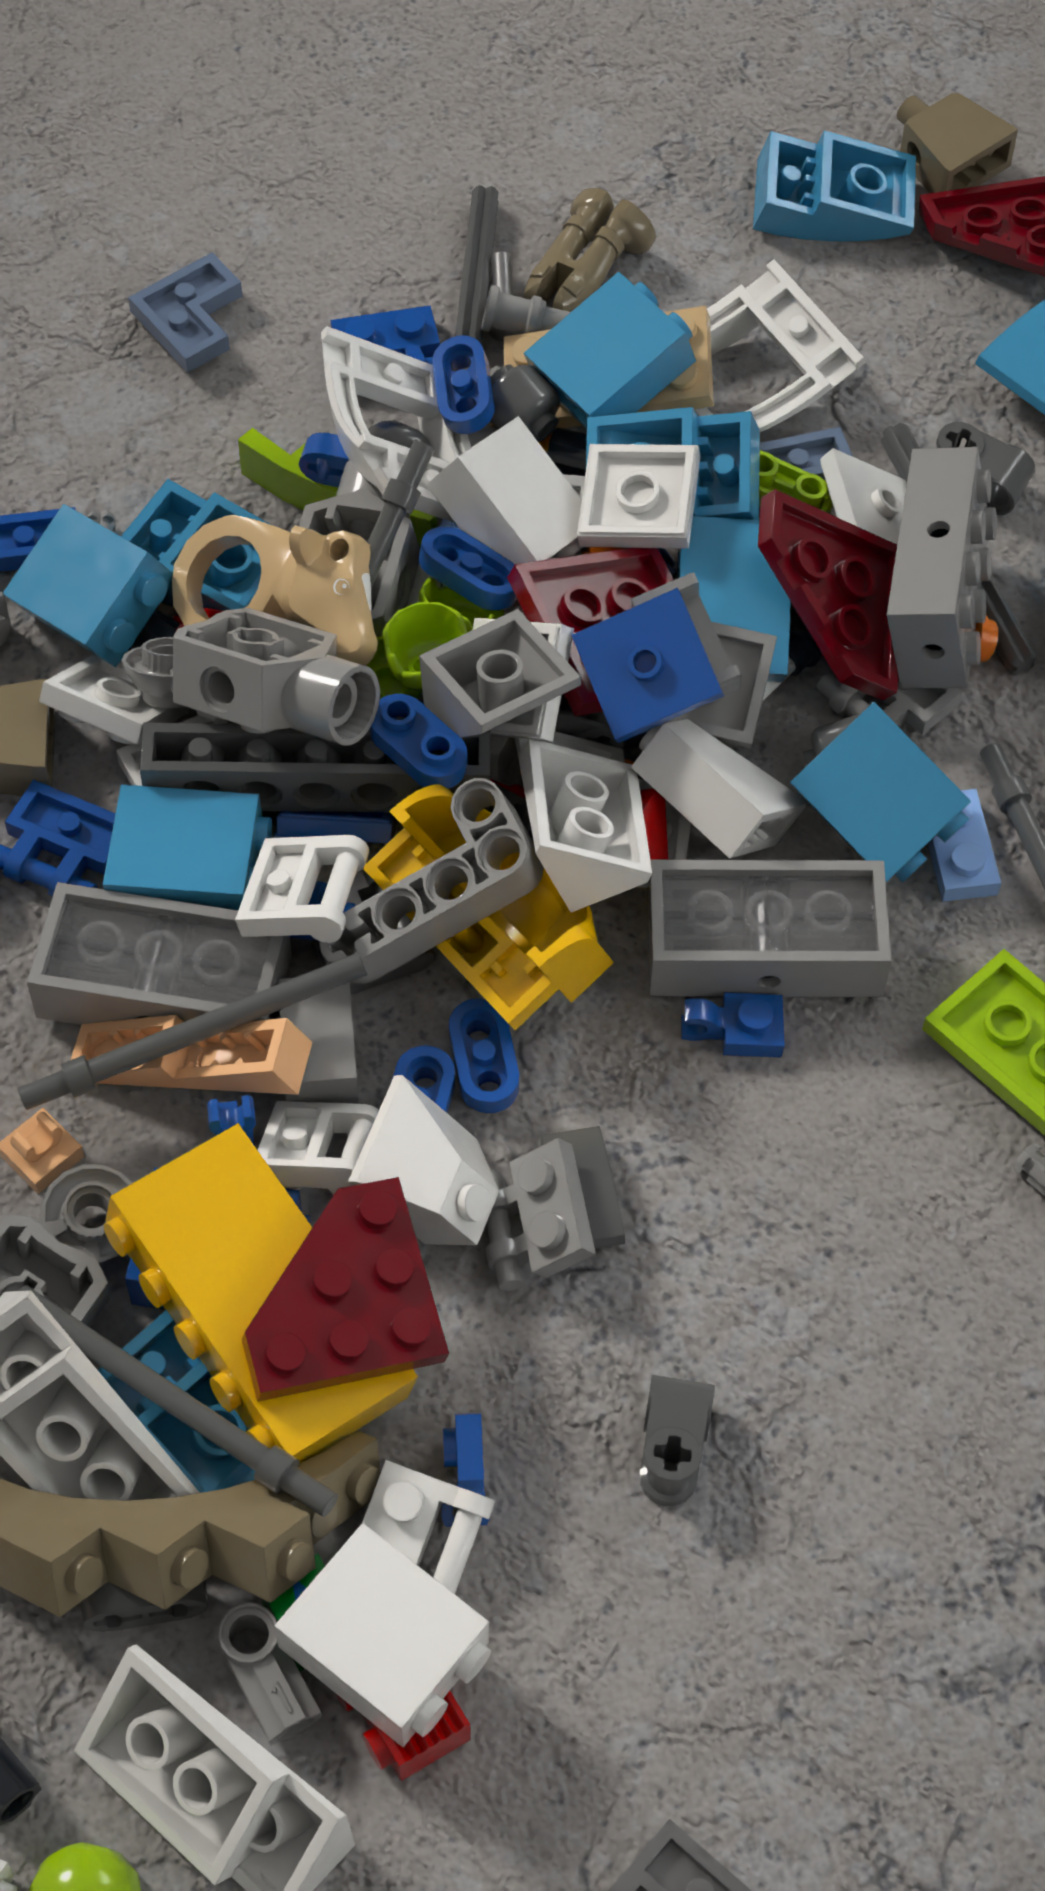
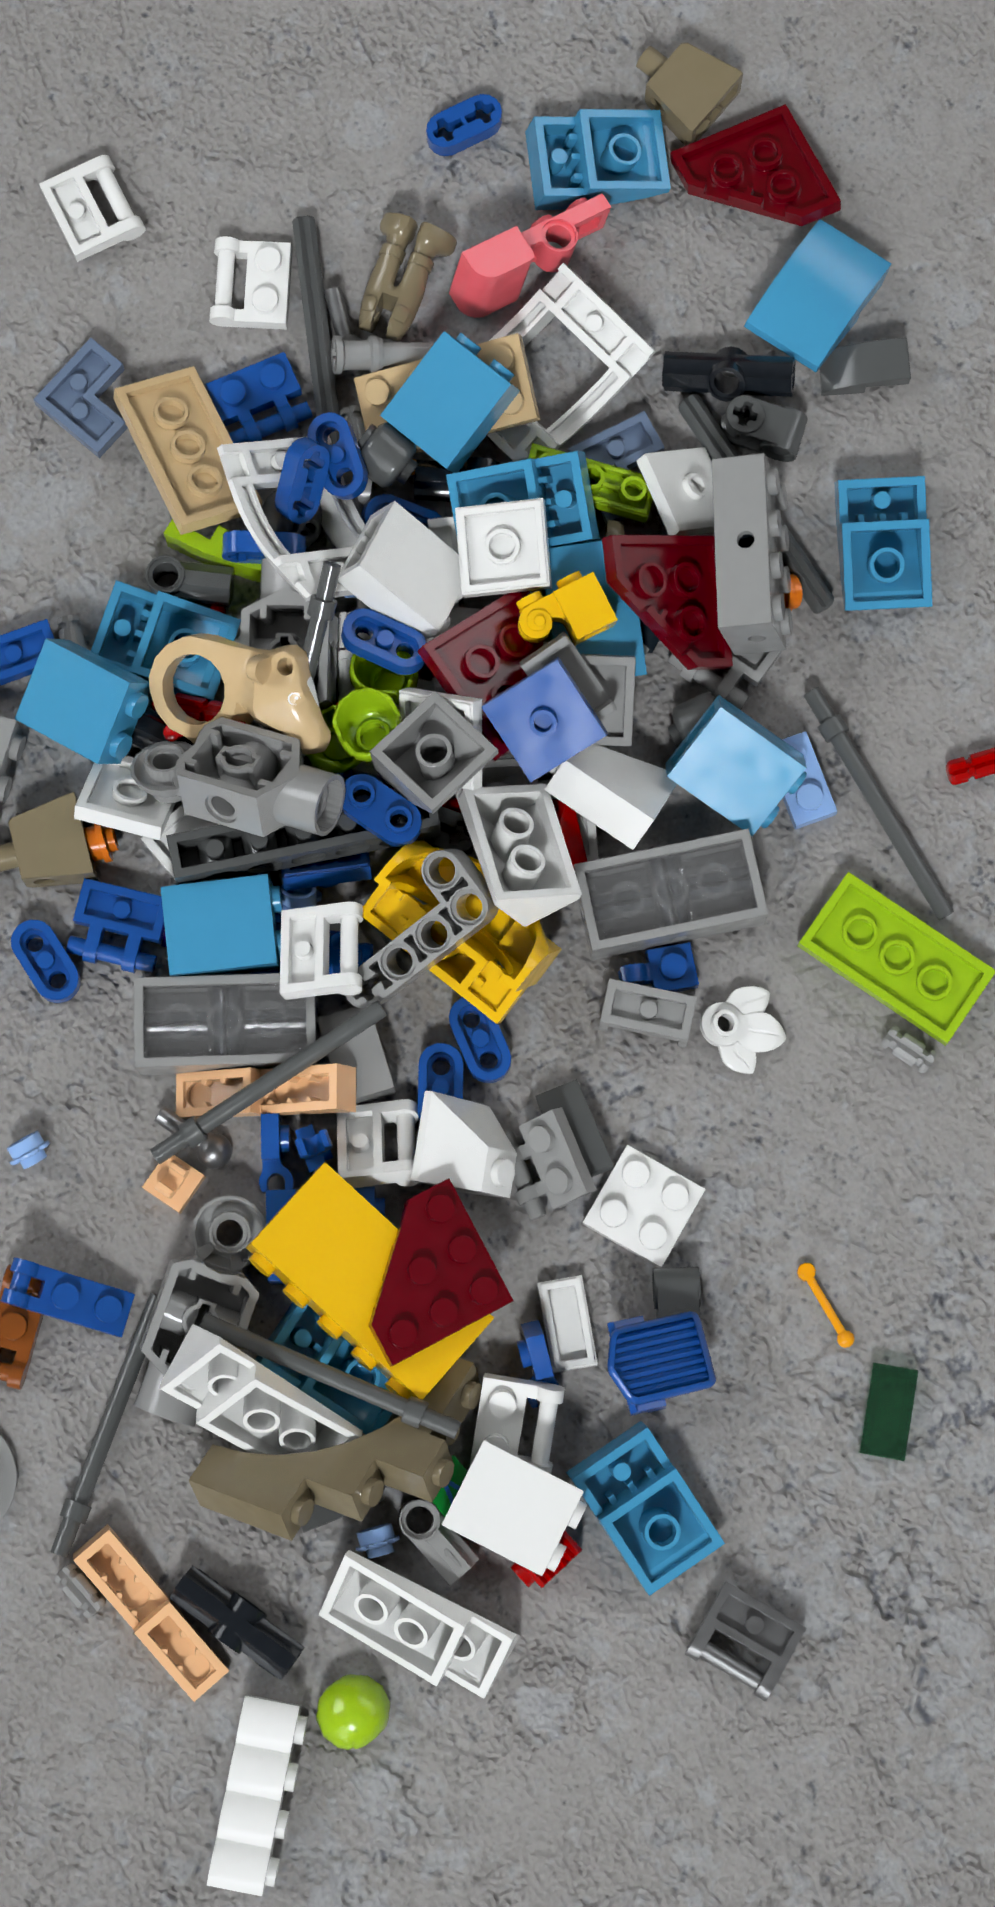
camera: 10 degrees left, 20 degrees up
(67, 747) = (101, 842): none -> orange plate
(102, 1123) = (211, 1153): none -> flat silver bar
(182, 1121) = (274, 1141): none -> blue plate
(186, 1657) = (377, 1540): none -> light blue plate
(235, 146) = (79, 214): none -> white plate
(266, 500) = (195, 581): none -> dark grey piece
(280, 364) = (179, 443): none -> tan plate
(414, 394) = (302, 480): none -> blue beam
(425, 248) = (265, 284): none -> white plate
(519, 1431) = (567, 1324): none -> white tile
(576, 1696) = (645, 1507): none -> dark azure slope
(633, 1482) = (658, 1359): none -> blue piece
(656, 1301) = (643, 1206): none -> white plate
(689, 140) = (462, 122): none -> blue beam
(700, 244) = (496, 269): none -> coral plate
(712, 1054) = (648, 1011): none -> light grey panel
(720, 560) = (576, 604): none -> yellow brick
(839, 1109) = (749, 1028): none -> white plate
(863, 1433) = (806, 1273): none -> light orange hinge
(915, 404) = (753, 373): none -> black piece
(947, 1638) = (888, 1412): none -> clear green tile

